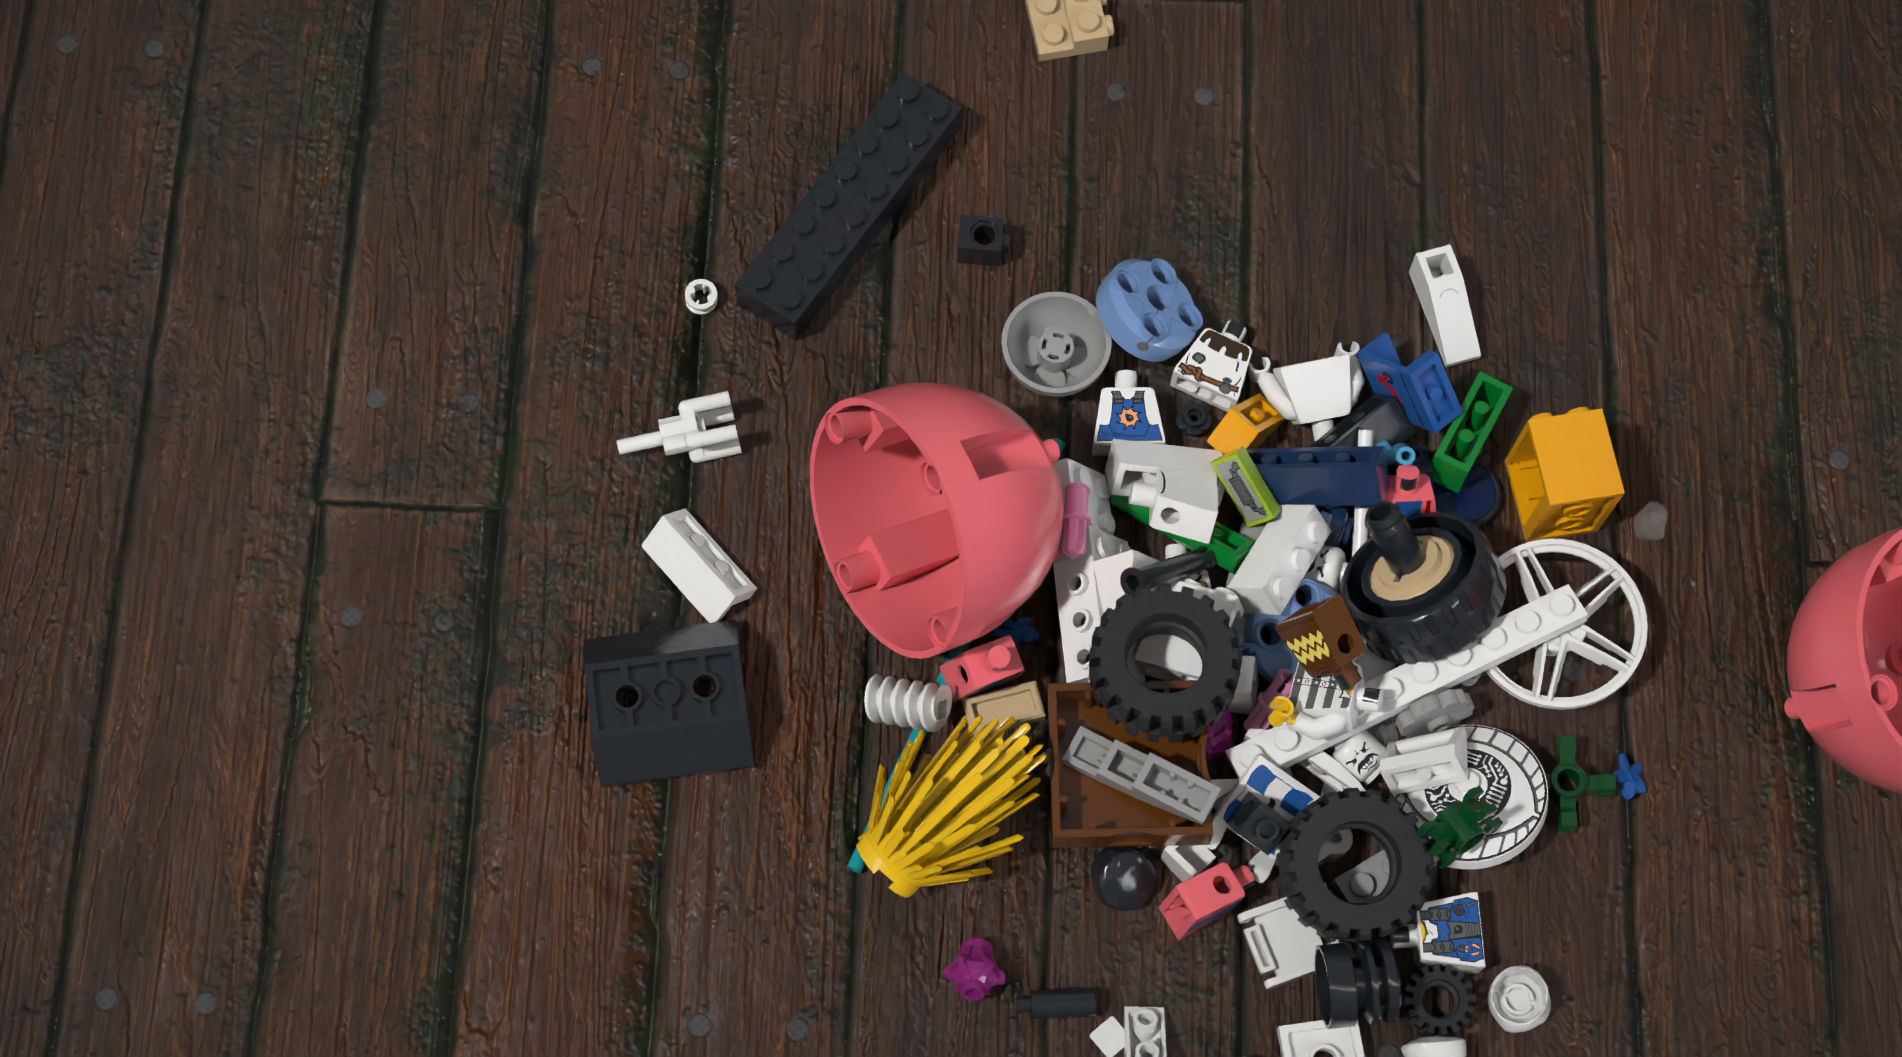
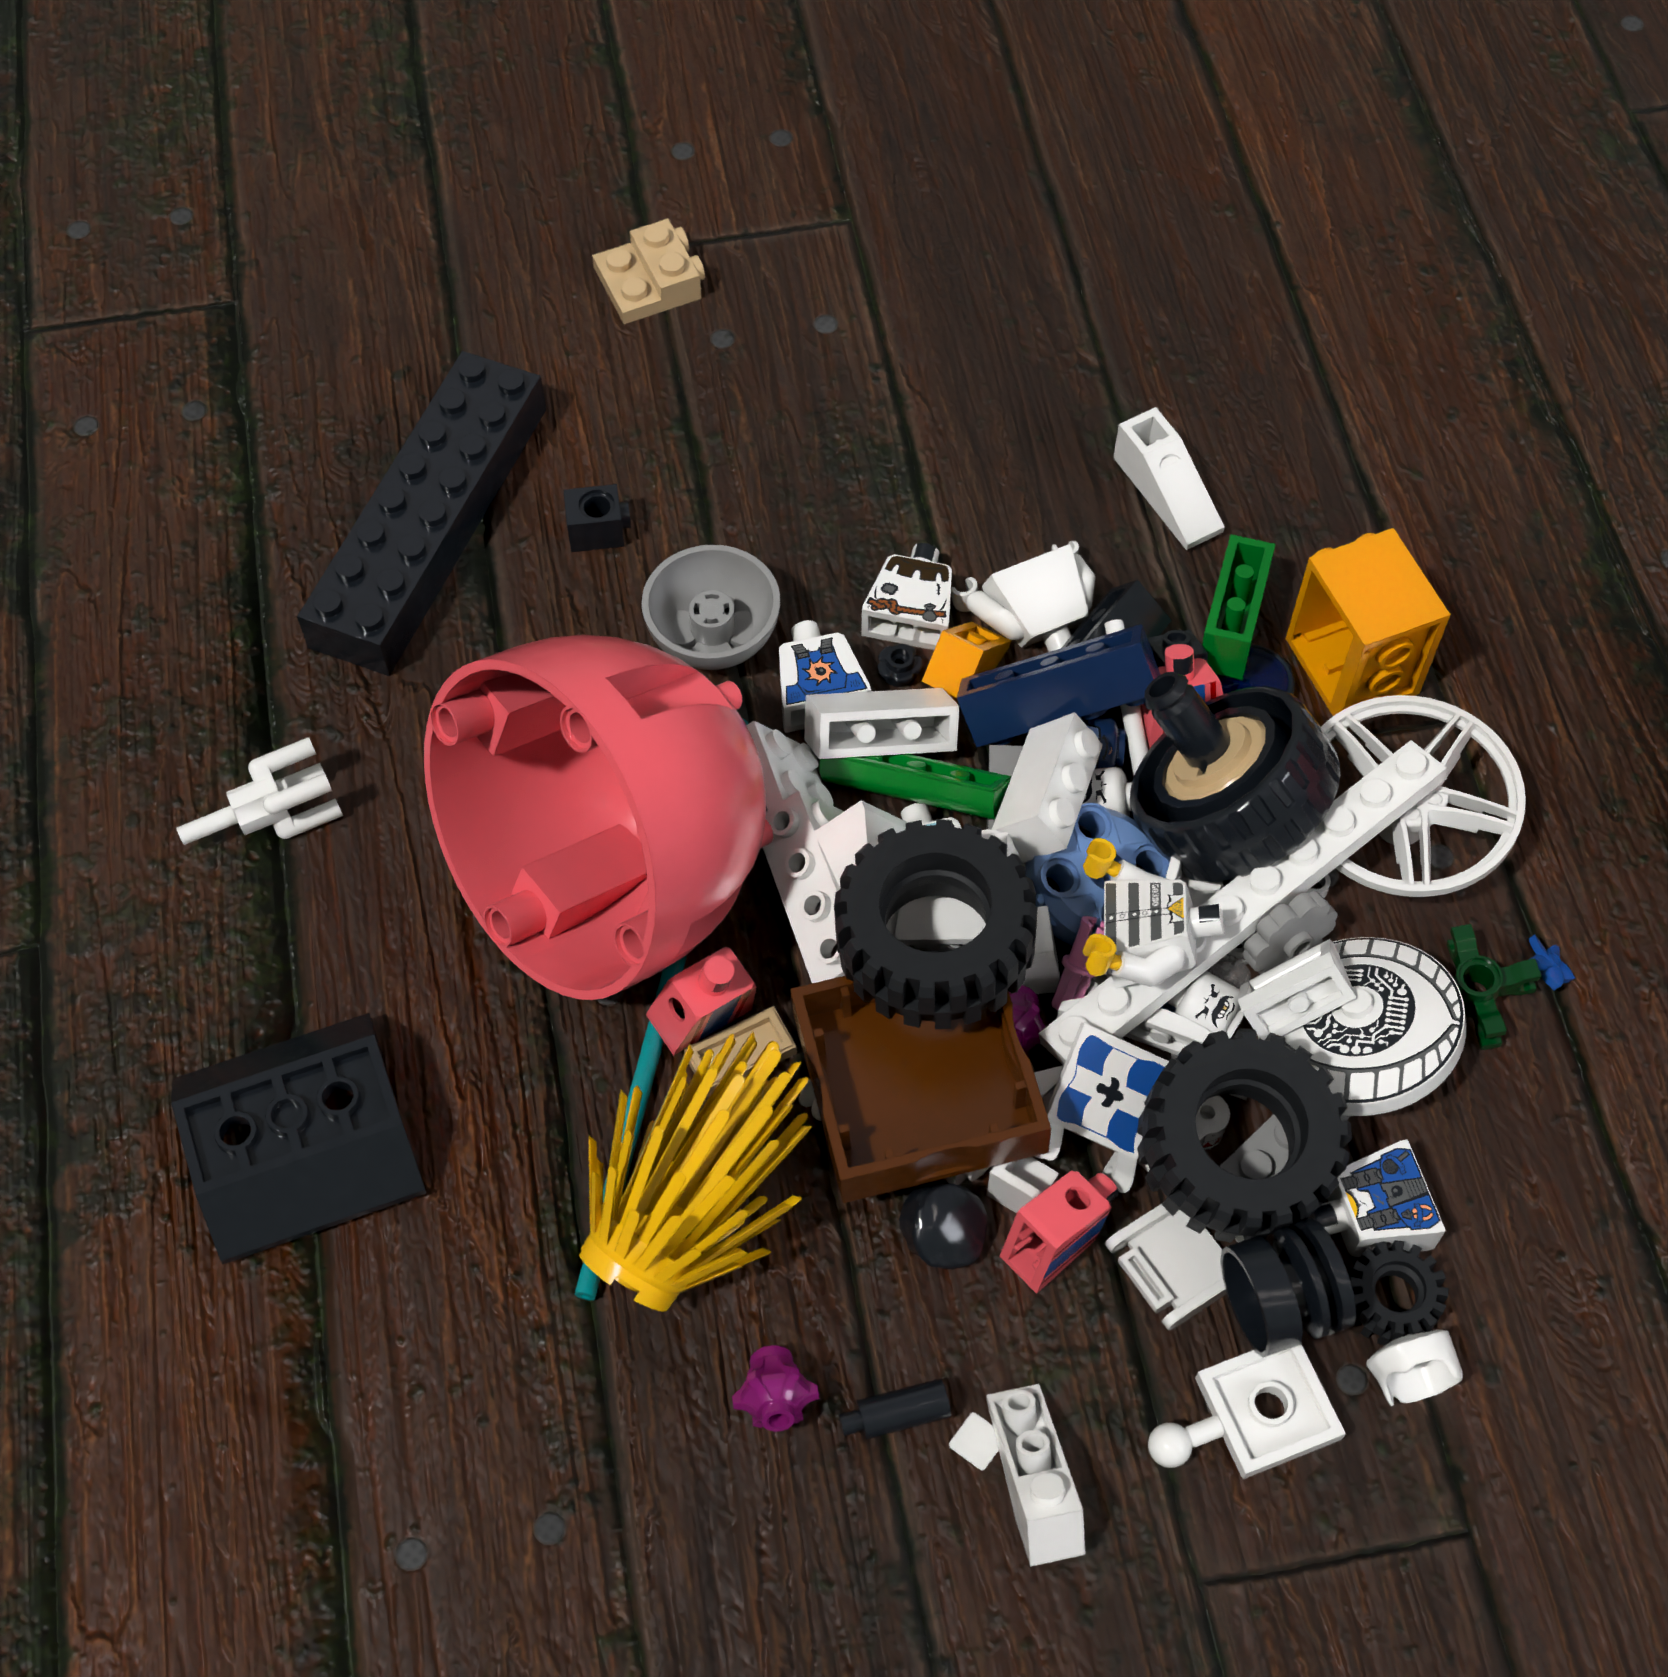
camera: 10 degrees left, 10 degrees down
(697, 565) = (306, 957): white panel -> none
(705, 285) = (258, 634): white bush -> none
(907, 703) = (613, 1064): white piece -> none
(1018, 630) = (742, 947): blue plant -> none
(1075, 519) = (780, 784): bright pink axle -> none
(1141, 775) = (940, 1079): light grey slope -> none
(1147, 309) = (814, 546): medium blue piece -> none
(1167, 570) = (943, 807): black pin -> none
(1180, 502) = (906, 746): white torso -> none
(1246, 487) = (984, 713): slope -> none
(1258, 823) = (1105, 1108): black brick -> none
(1324, 640) = (1134, 852): reddish brown torso -> none
(1397, 454) = (1165, 635): dark azure arm -> none
(1419, 388) = (1163, 558): blue panel -> none
(1460, 827) = (1367, 1051): dark green pin -> none
(1519, 999) = (1499, 1265): white hair -> none
(1651, 522) = (1480, 668): clear piece -> none

